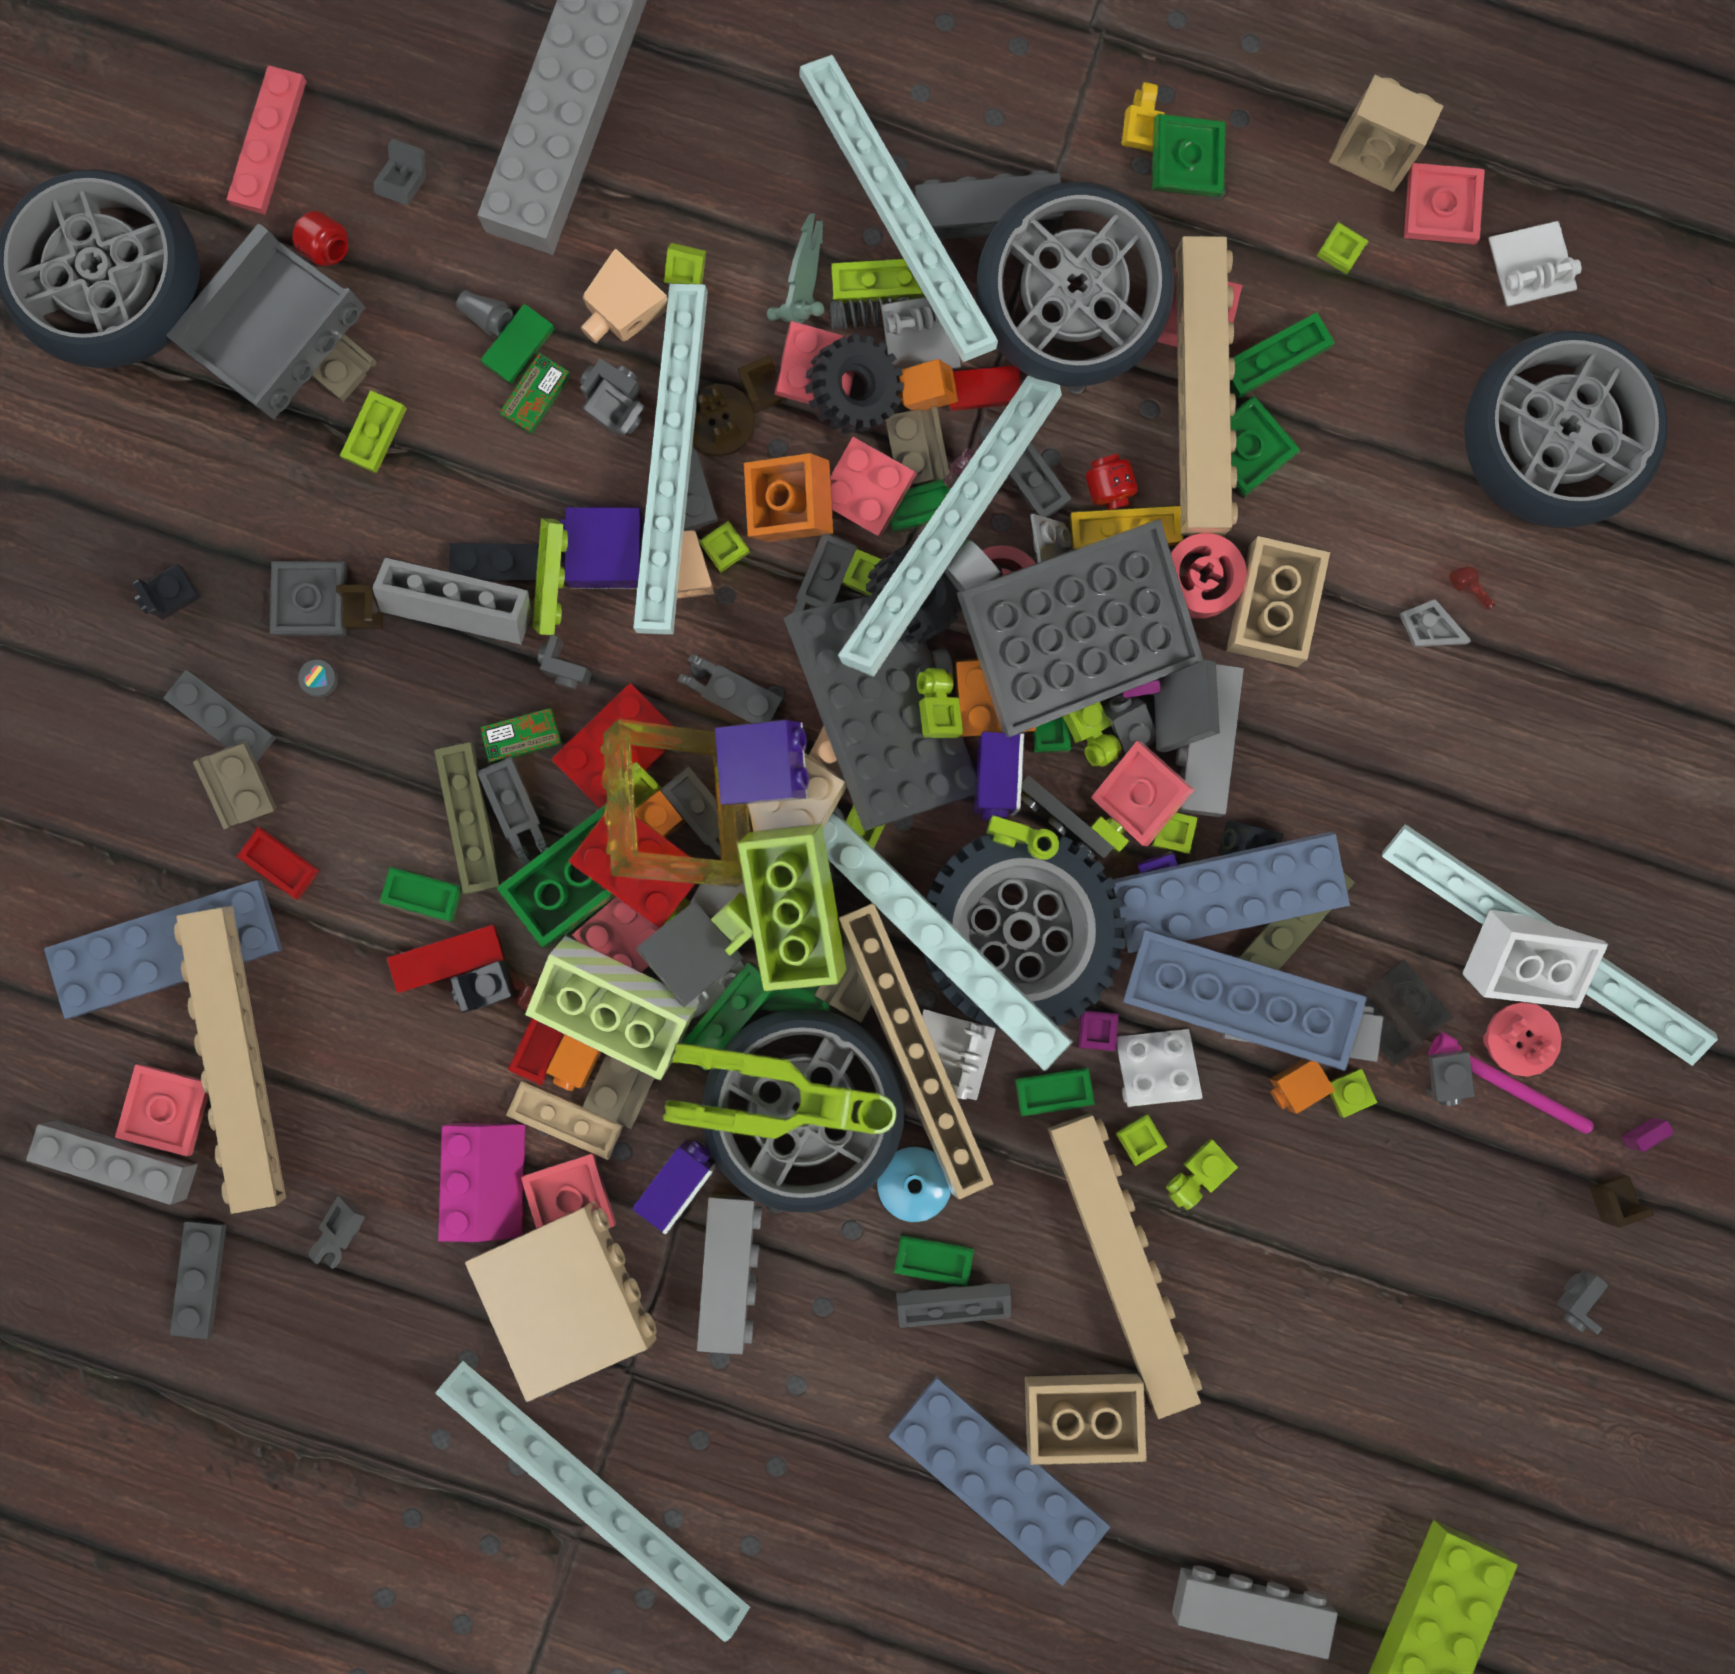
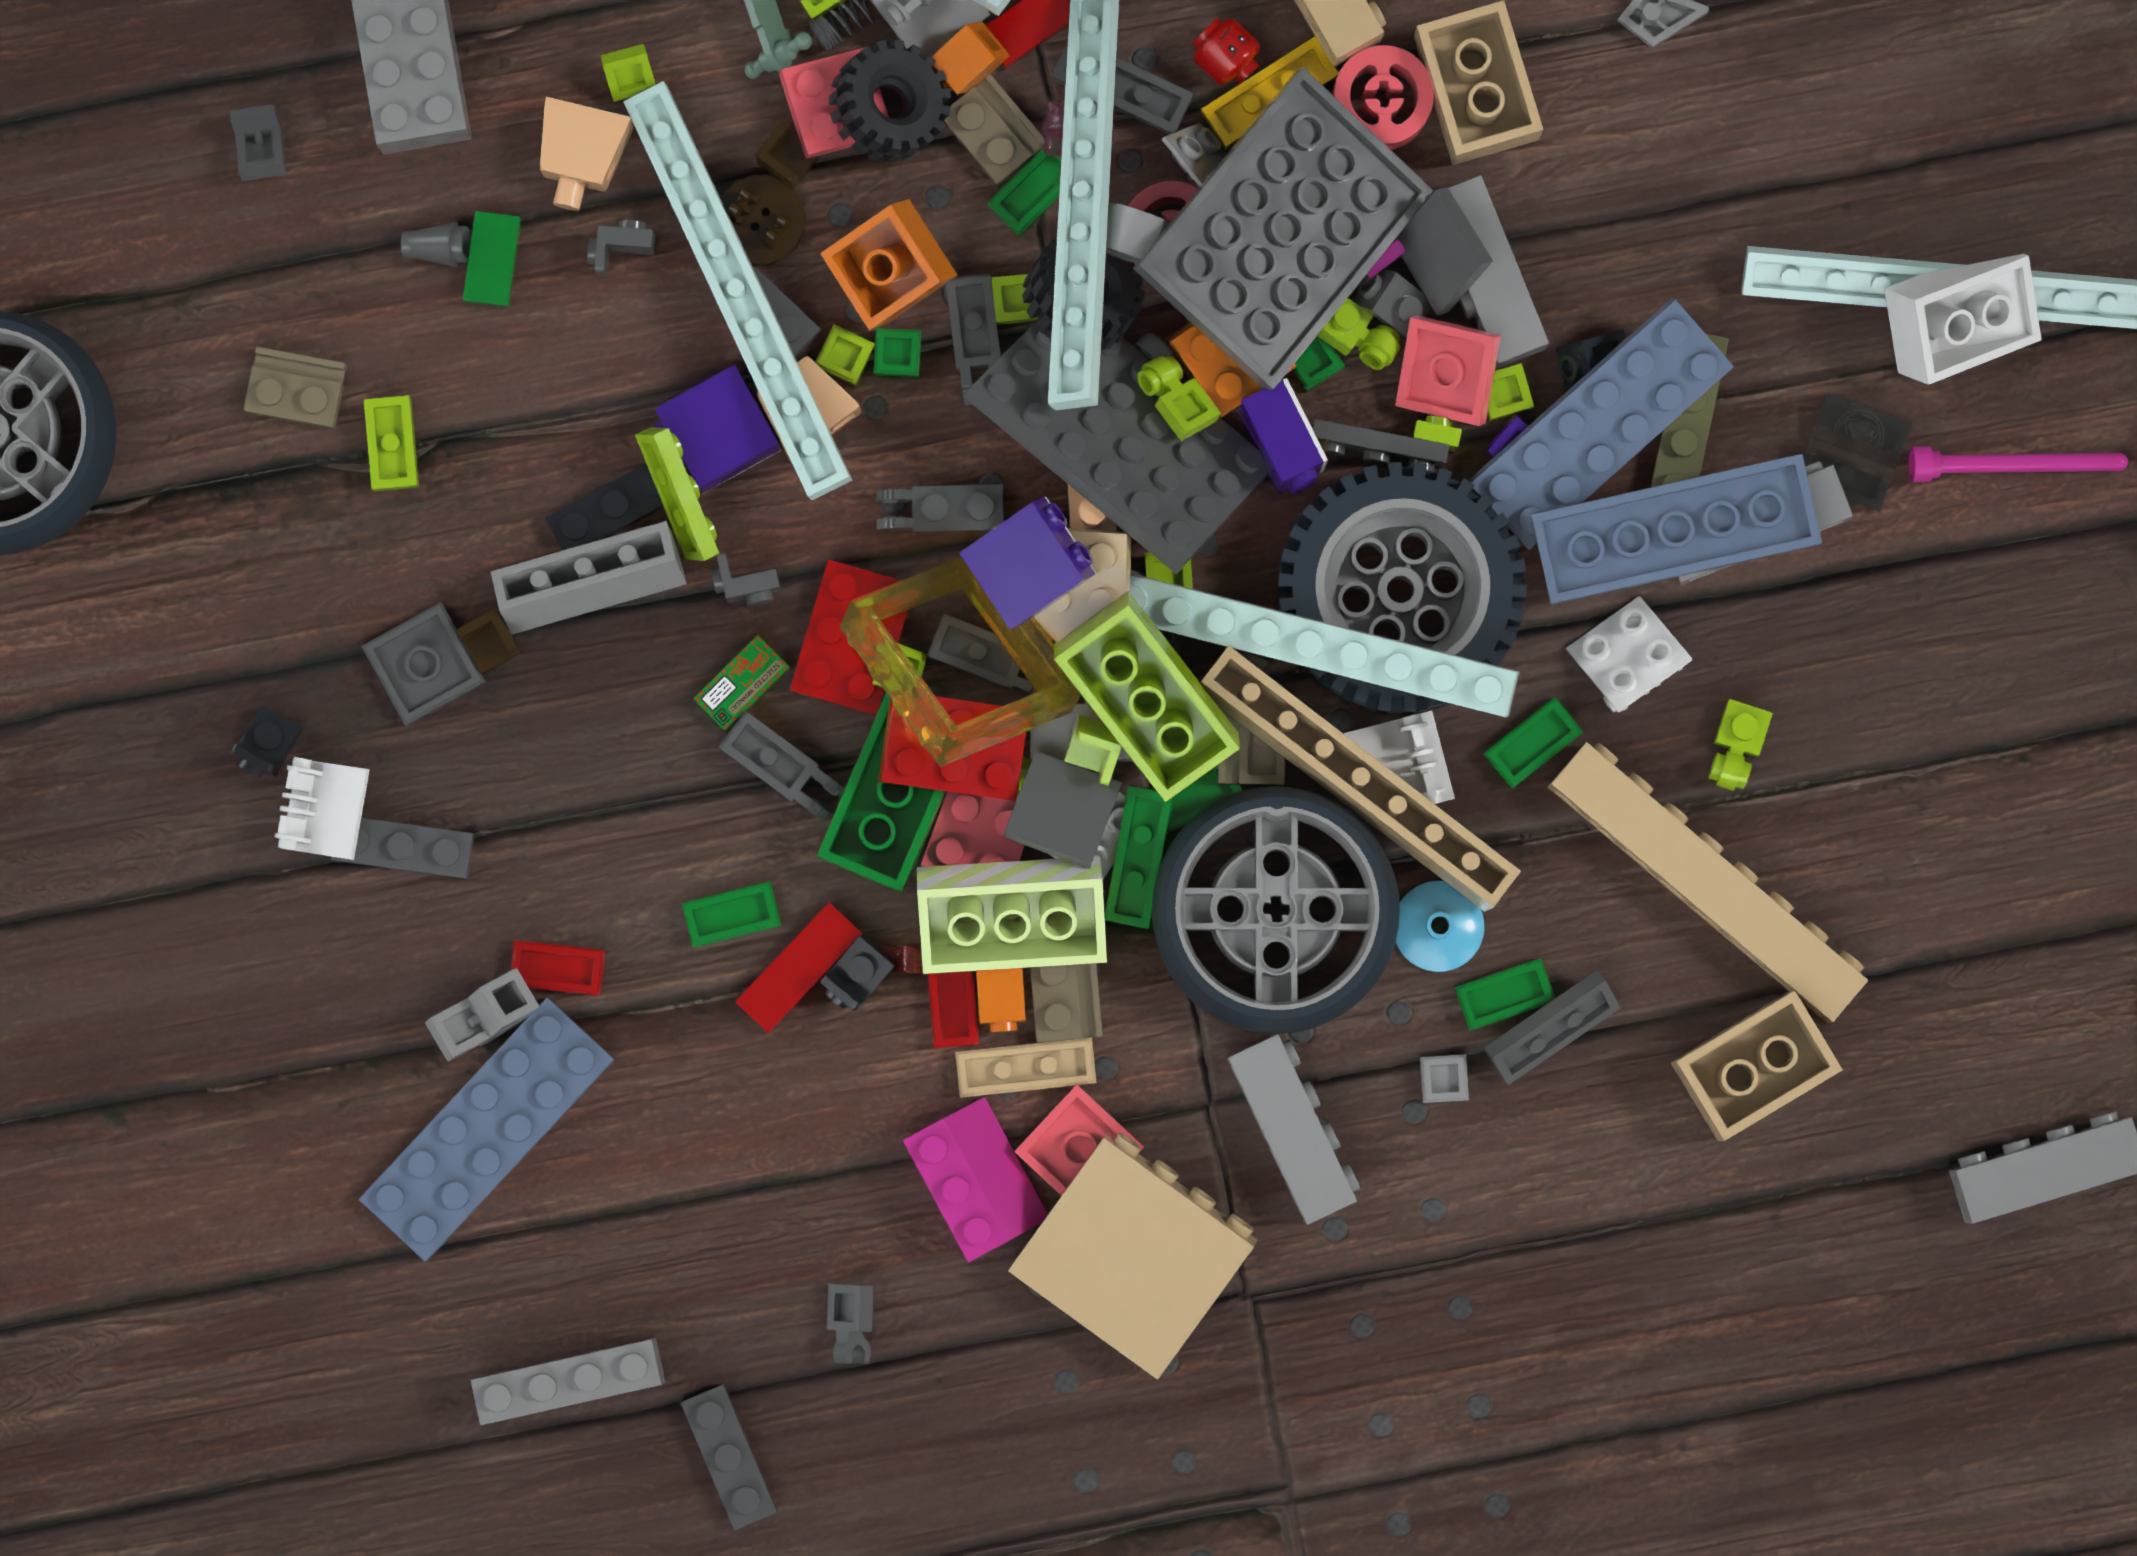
camera: 25 degrees left, 0 degrees up
(162, 1110) = (588, 1297): coral plate -> none
(176, 659) = (322, 808): none -> white hinge
(199, 867) = (482, 1015): none -> light grey brick
(230, 1059) = (634, 1199): tan brick -> none
(234, 784) = (464, 908): dark tan plate -> none
(266, 139) = (84, 187): coral plate -> none
(266, 322) = (210, 389): dark grey panel -> none
(318, 678) = (485, 744): dark grey tile -> none
(320, 238) = (211, 264): red head -> none
(468, 818) = (736, 803): olive plate -> none
(535, 393) = (542, 303): tile -> none
(593, 1501) = (1285, 1447): light aqua plate -> none
(613, 409) = (640, 272): dark grey bracket -> none
(660, 814) = (947, 679): orange brick -> none
(675, 1185) = (1186, 1062): dark purple piece -> none
(762, 565) = (897, 352): none -> green tile
(819, 1103) = (1289, 889): lime piece -> none
(856, 1296) = (1444, 1078): none -> light grey tile
(868, 486) = (966, 202): coral plate -> none
(999, 1481) = (1704, 1186): sand blue plate -> none
(1010, 832) = (1330, 490): lime plate -> none
(1098, 1031) = (1542, 651): magenta tile -> none
(1141, 1139) = (1653, 742): lime tile -> none
(1300, 1086) = (1790, 588): orange brick -> none
(1352, 1093) = (1849, 566): lime plate -> none
(1450, 1077) = (1943, 490): dark grey bracket -> none
(1536, 1051) = (1980, 400): coral plate -> none

